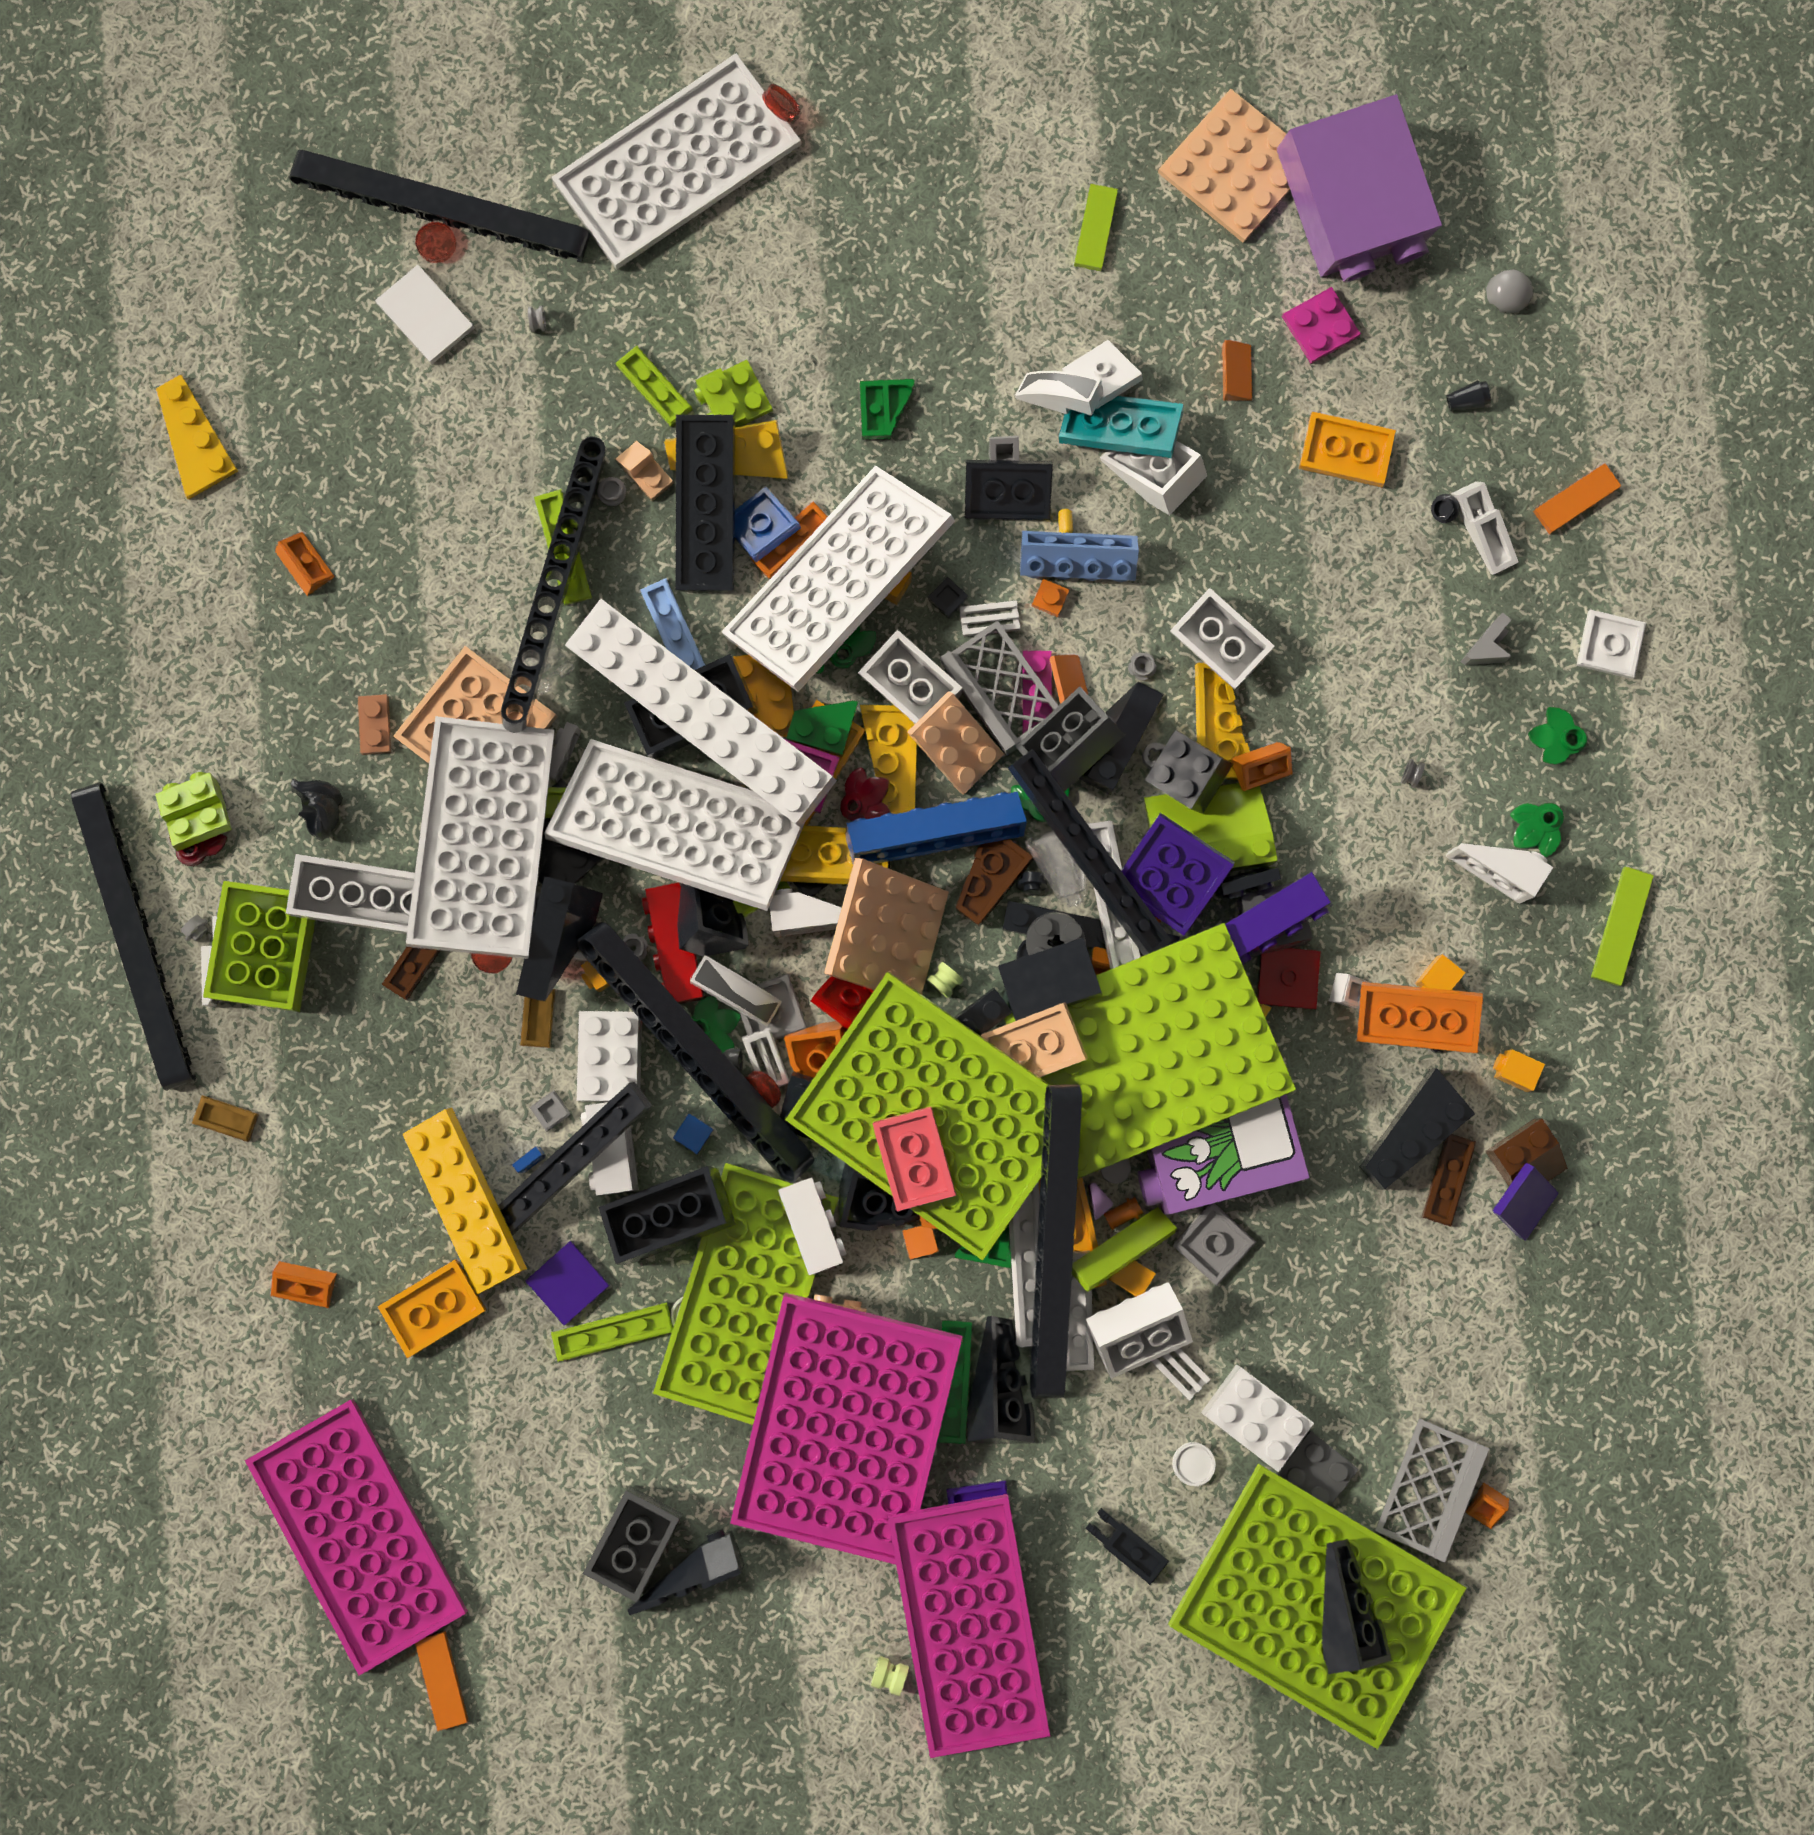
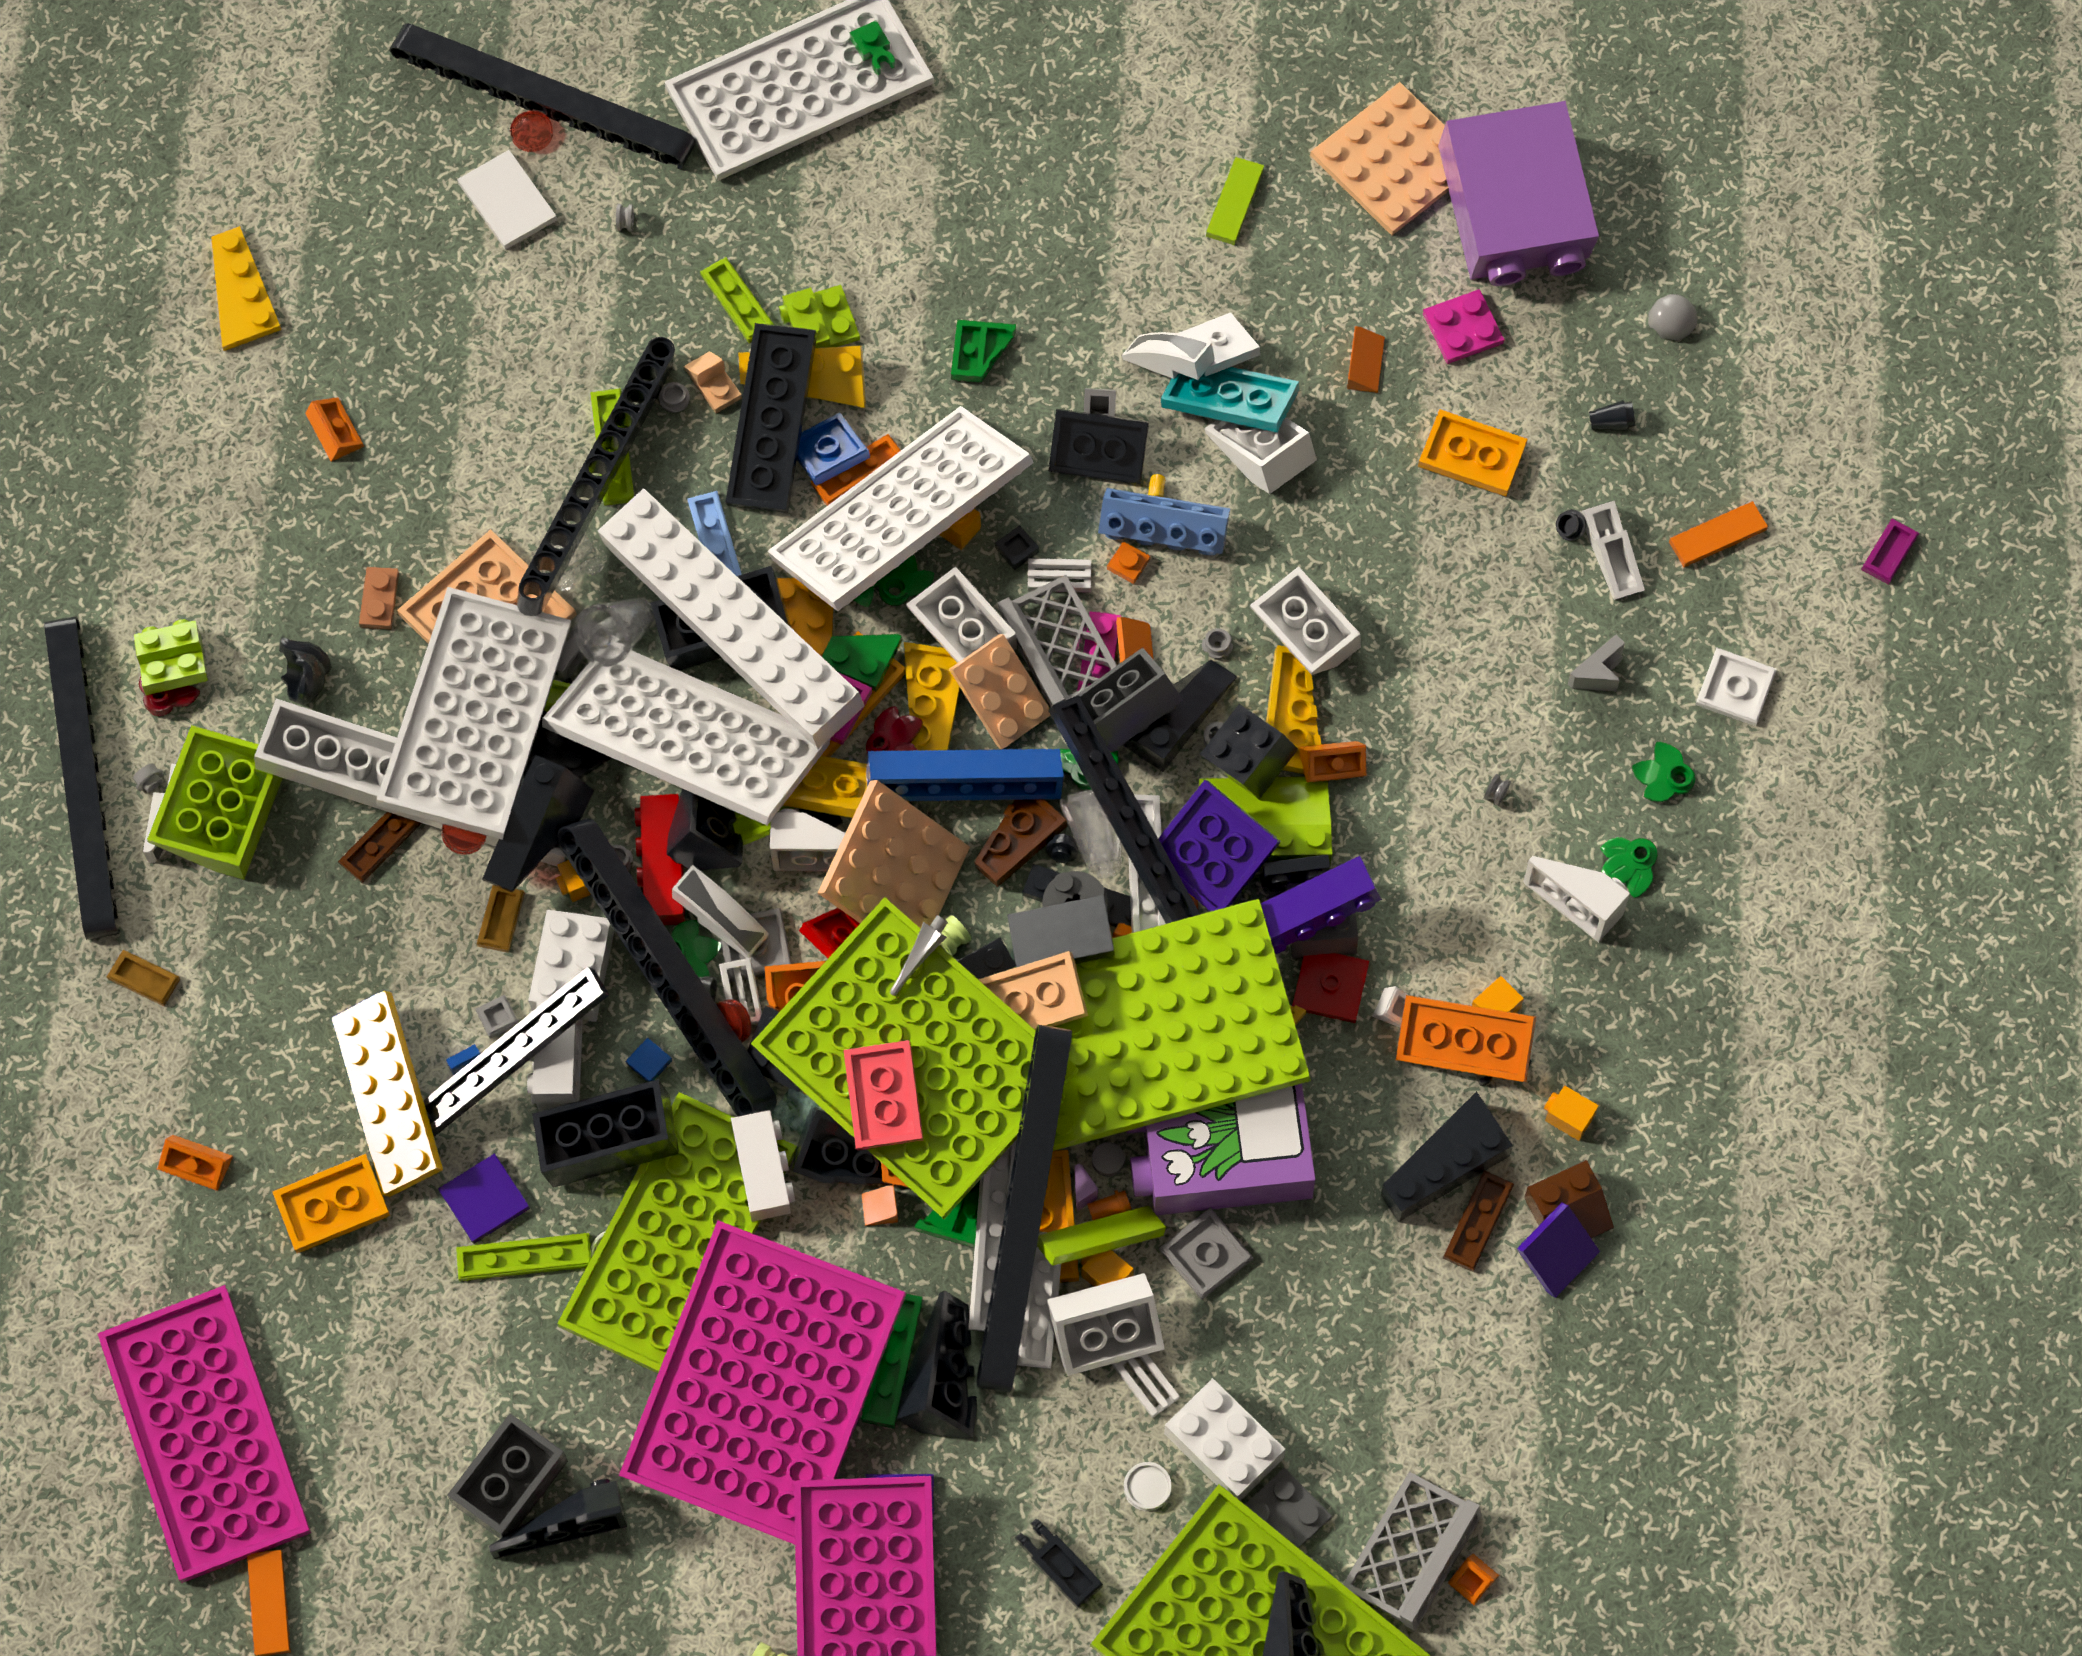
camera: 10 degrees right, 15 degrees down
(594, 732) = (612, 629): none -> clear cone
(739, 114) = (873, 44): none -> green plate
(781, 103) = (918, 38): clear red piece -> none
(934, 1009) = (926, 942): none -> light grey piece
(1622, 926) = (1709, 979): lime tile -> none
(1732, 494) = (1890, 551): none -> magenta tile

